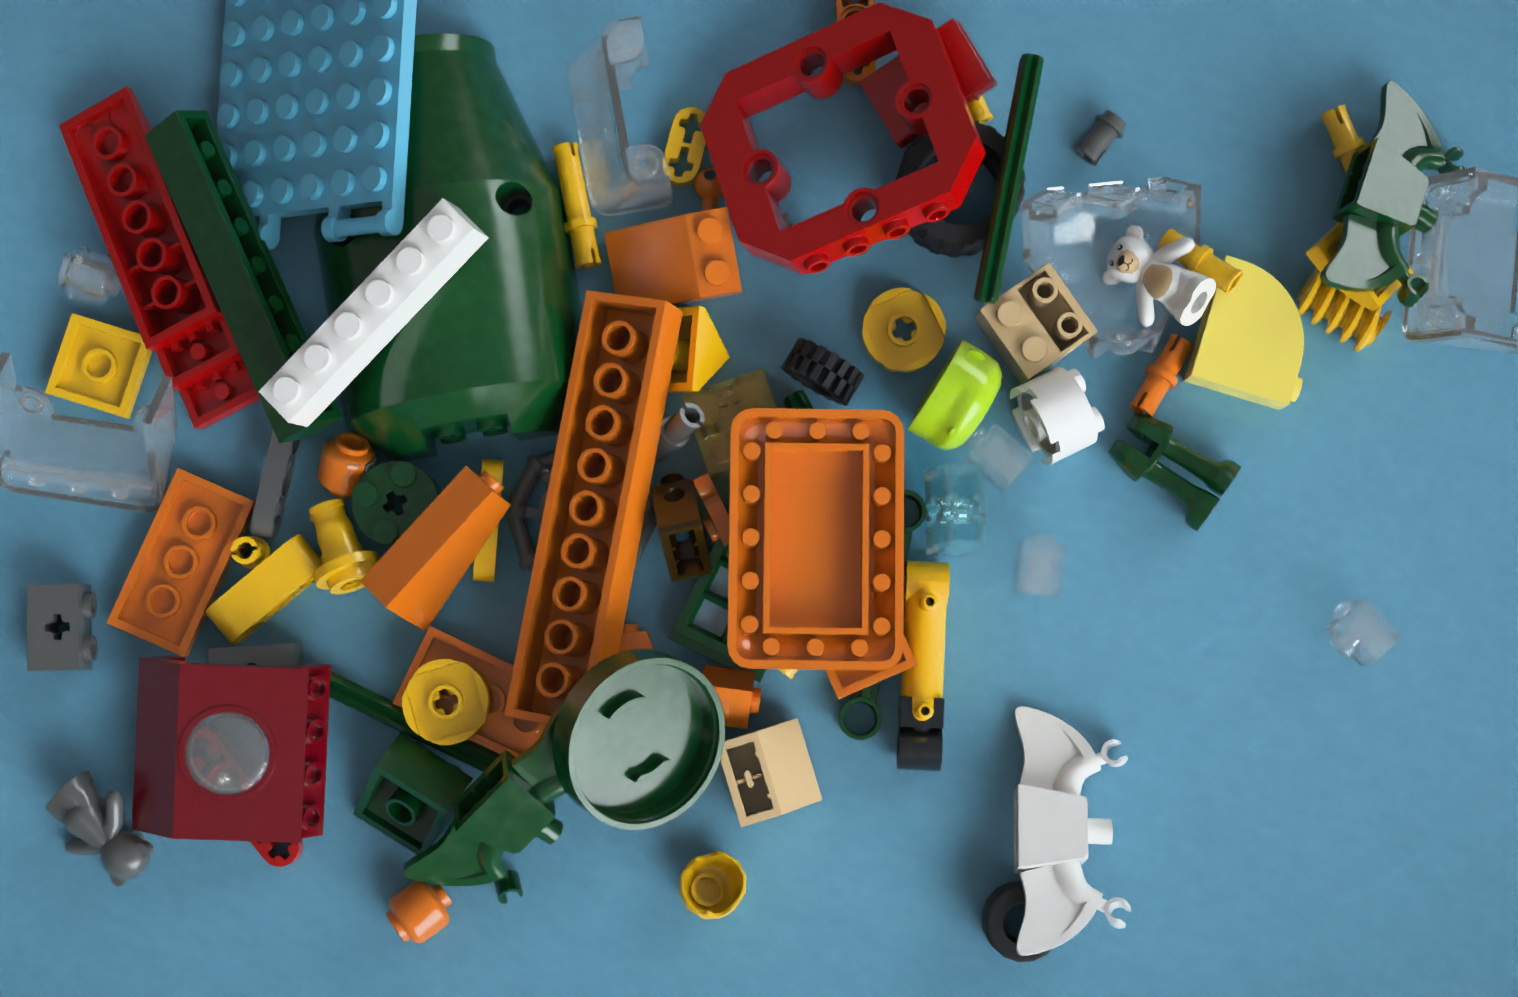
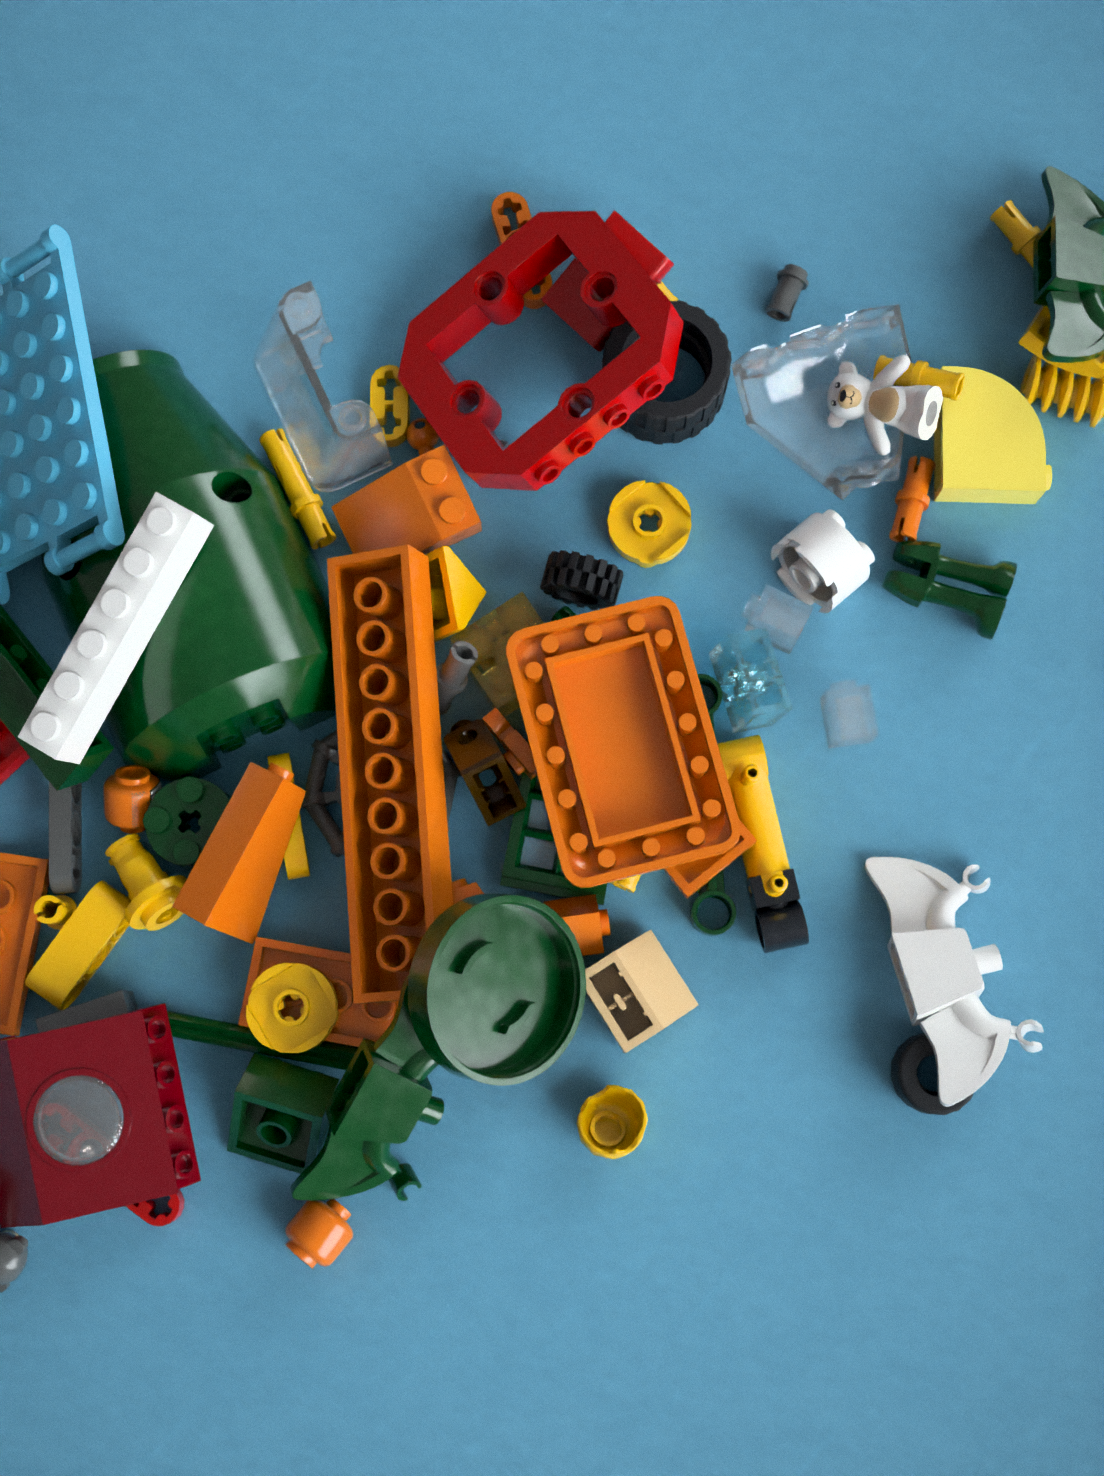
camera: 10 degrees left, 5 degrees down
(957, 398) = (721, 569): lime piece -> none
(1008, 178) = (712, 344): dark green axle -> none
(1035, 324) = (776, 481): tan slope -> none

